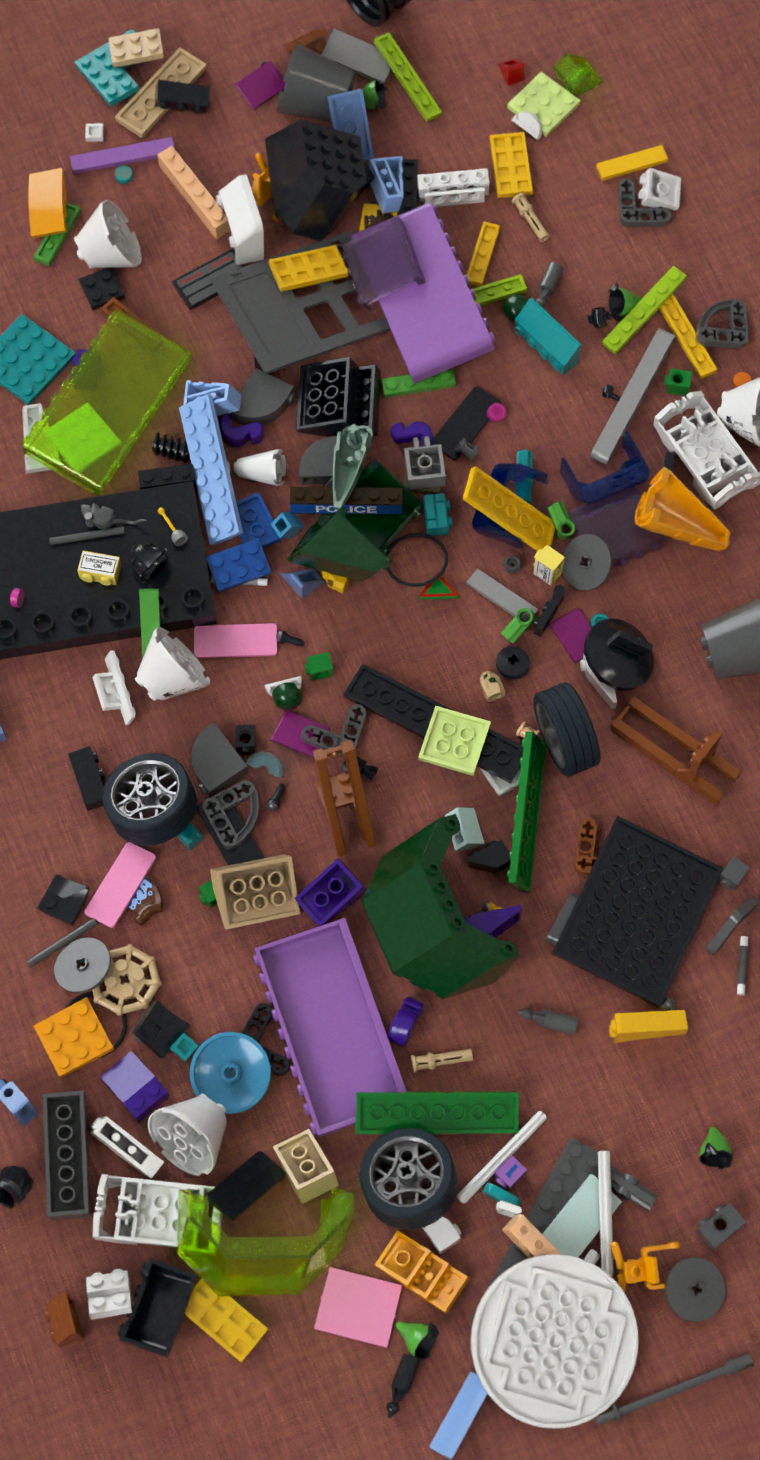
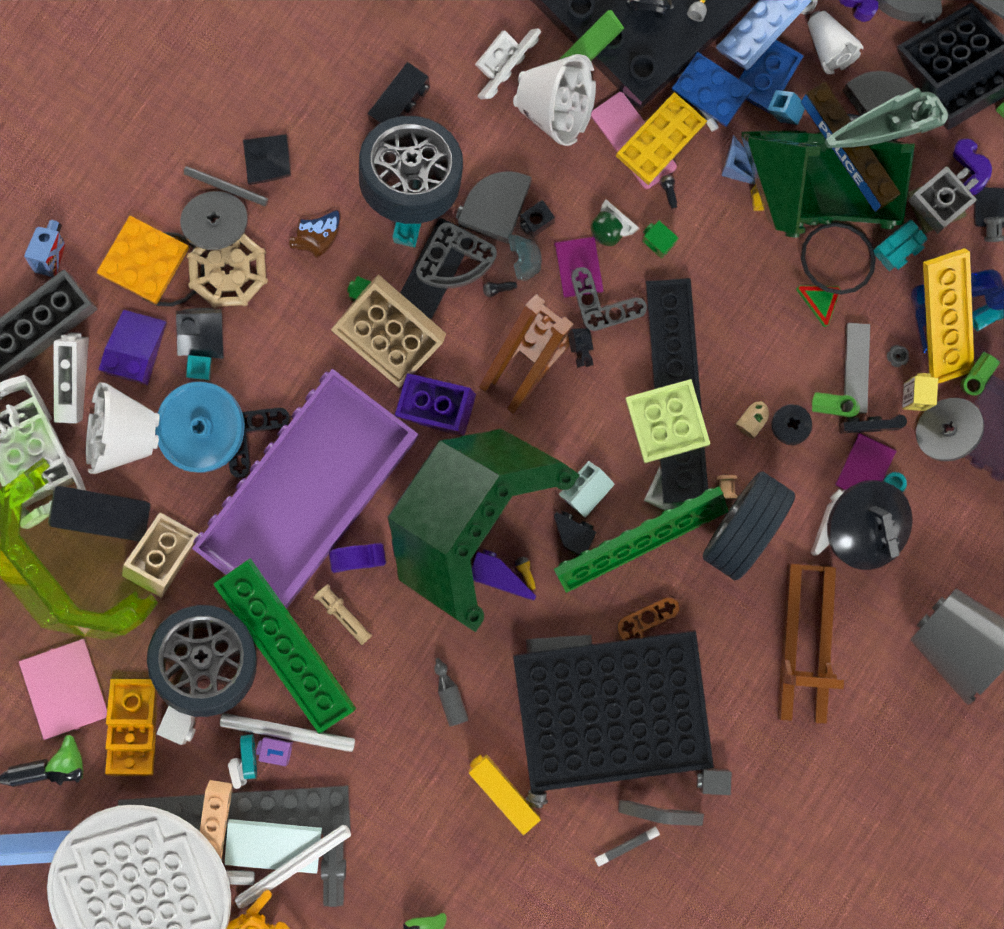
camera: 55 degrees right, 15 degrees up
(120, 885) = (315, 201): bright pink piece -> none
(248, 620) = (661, 138): none -> yellow plate

